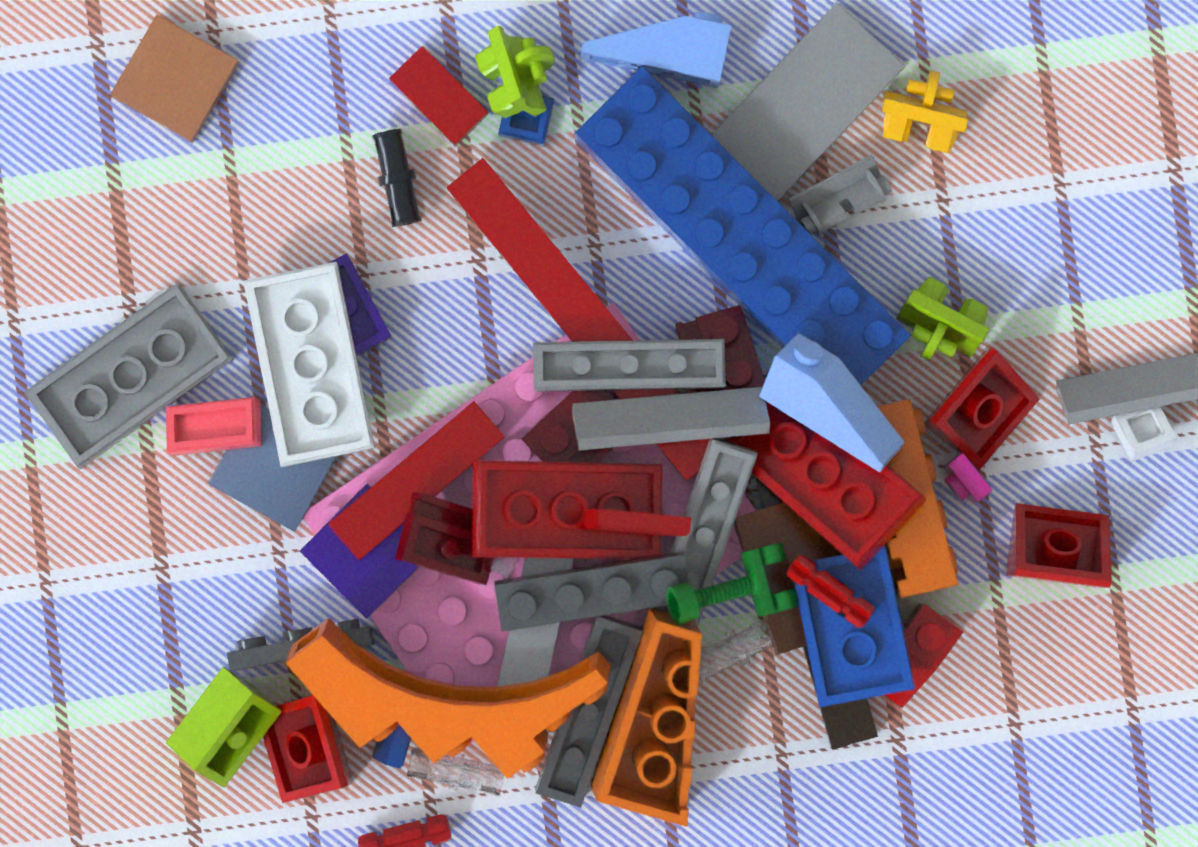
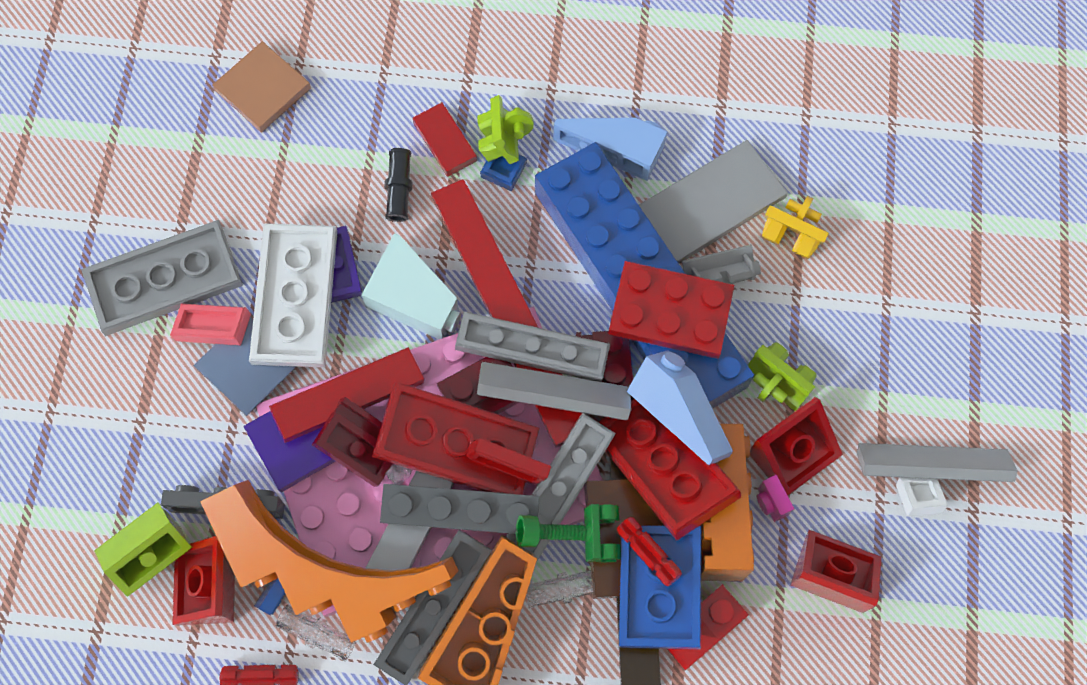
camera: 15 degrees right, 15 degrees down
(454, 322) = (411, 292): none -> light aqua slope
(791, 279) = (671, 309): none -> red plate

